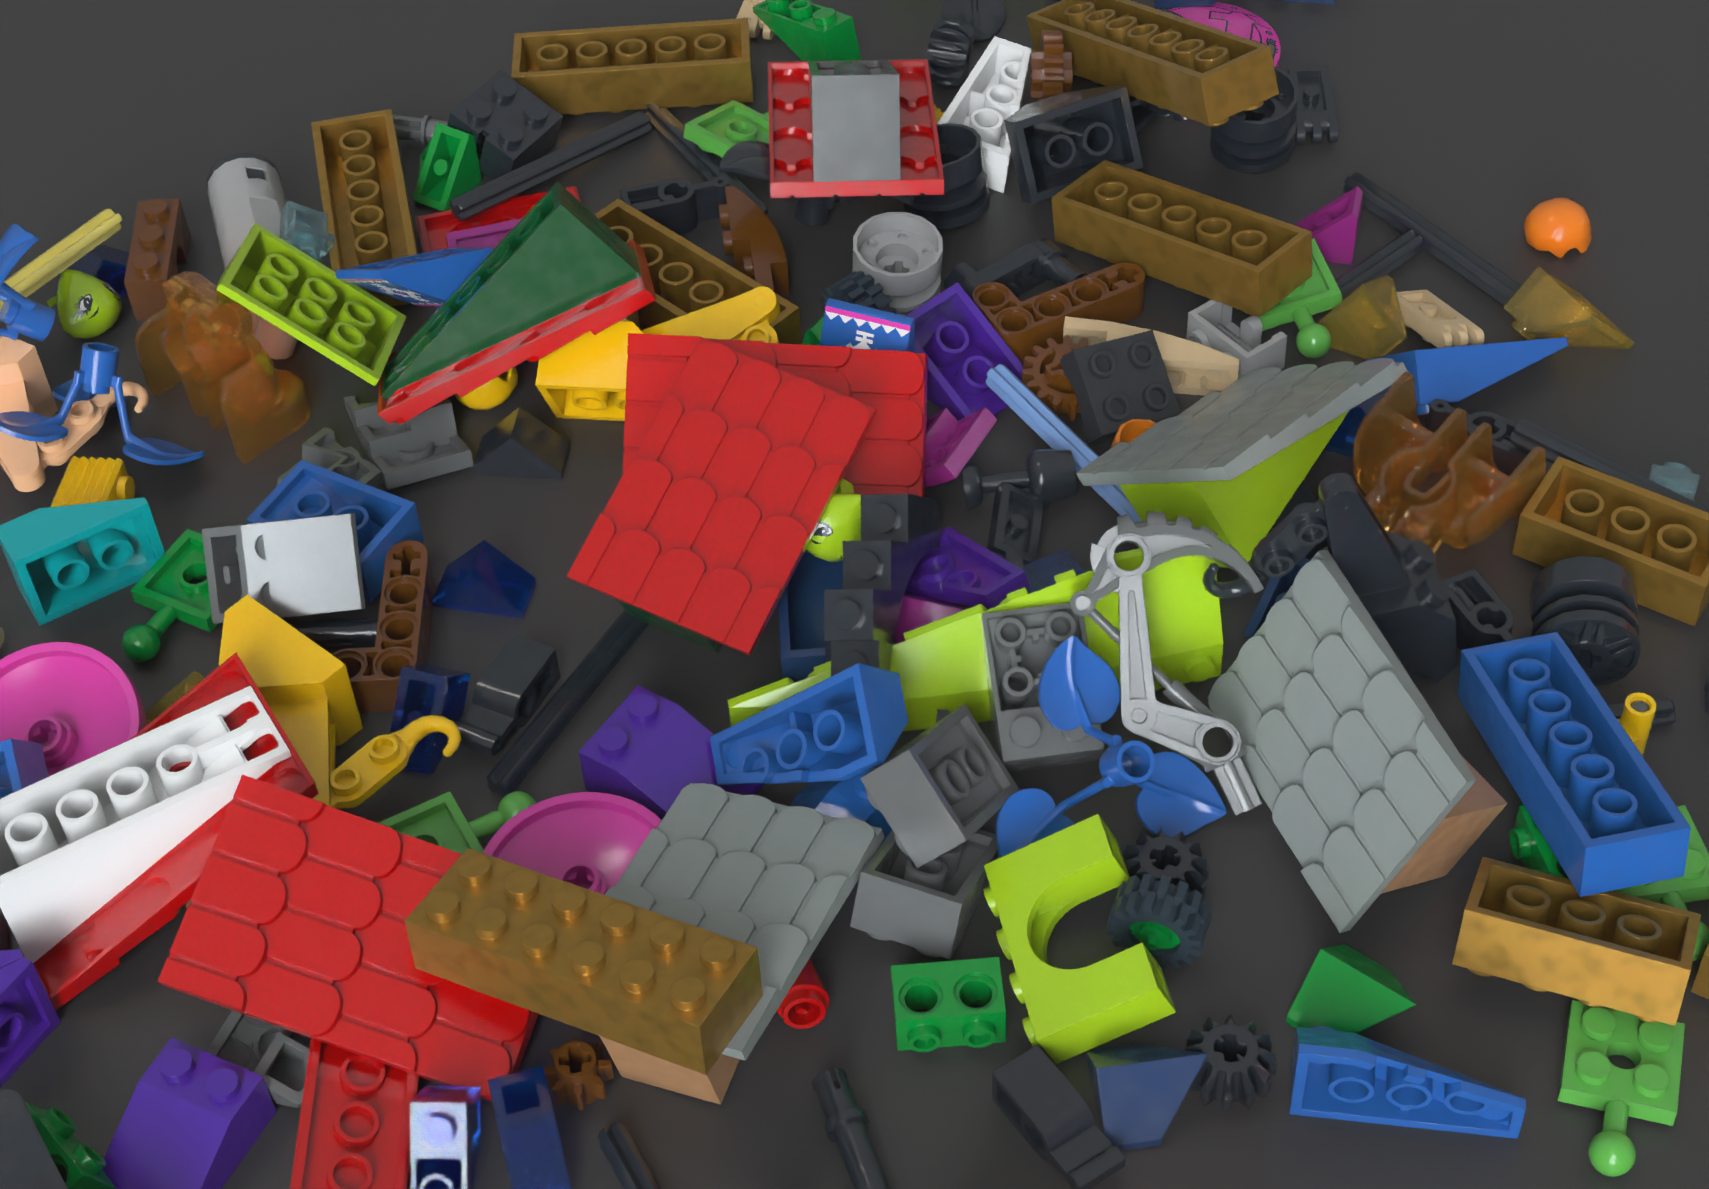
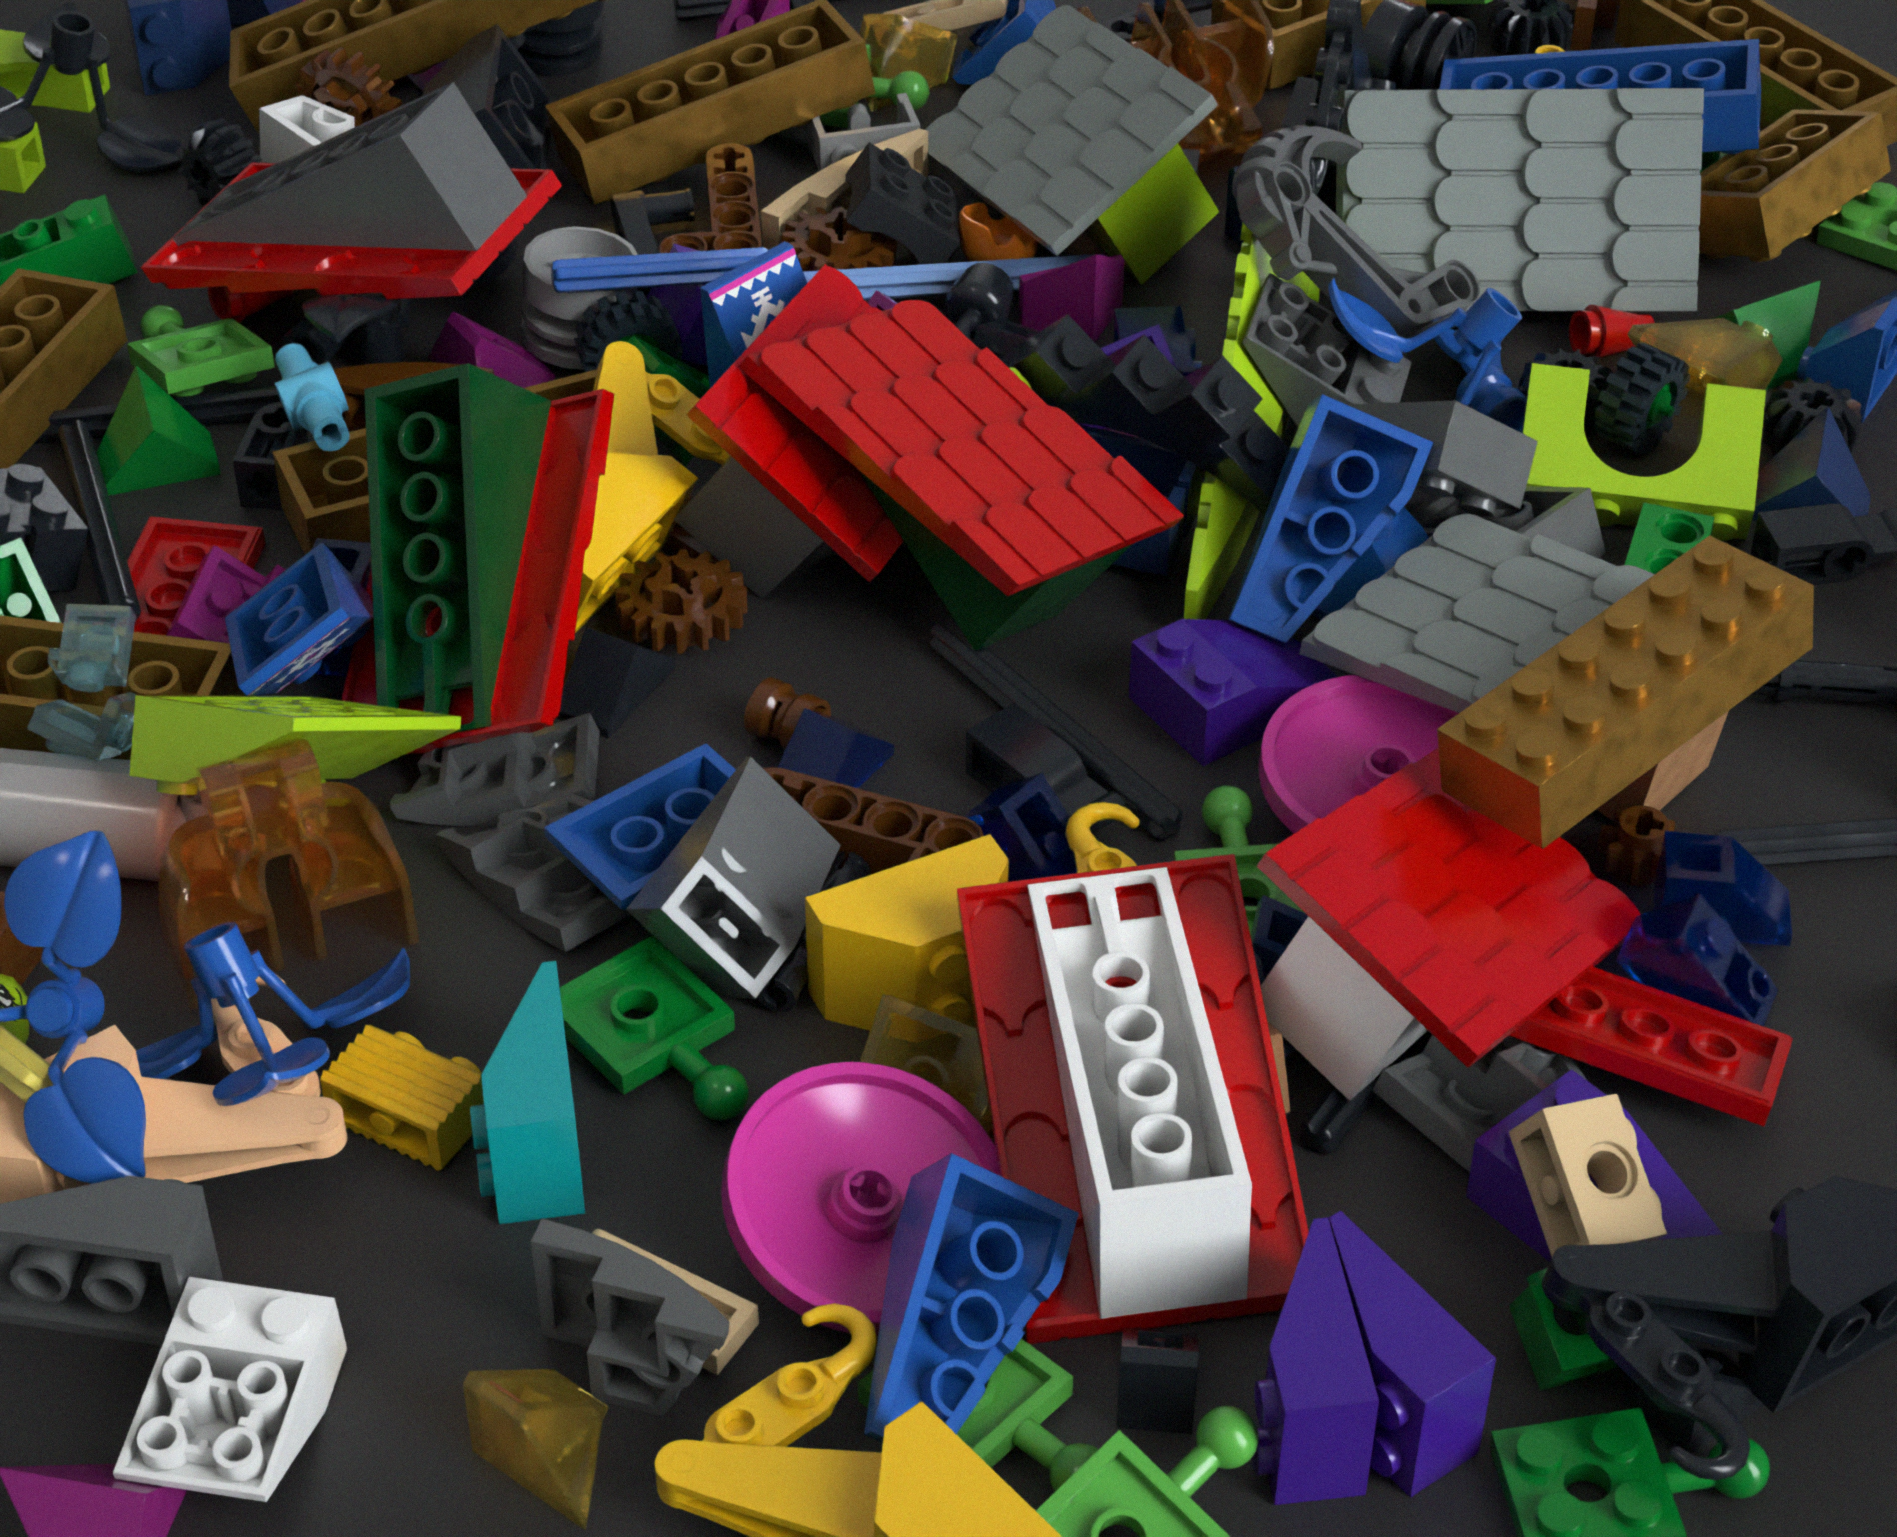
camera: 70 degrees left, 5 degrees down
(99, 1118) = (1559, 1151): none -> tan brick
(363, 204) = (94, 647): none -> clear light blue bracket
(514, 536) = (777, 709): none -> reddish brown wheel
(601, 449) = (681, 601): none -> reddish brown gear
(653, 154) = (153, 441): none -> green slope
(675, 190) = (312, 397): none -> medium azure pin
(814, 258) = (471, 343): none -> magenta slope
(902, 285) = (647, 269): none -> blue axle
(1088, 521) = (1083, 290): none -> magenta slope
(1126, 819) = (1497, 398): none -> blue wheel
(1240, 956) = (1715, 351): none -> clear yellow slope
(1281, 882) = (1603, 330): none -> red cone

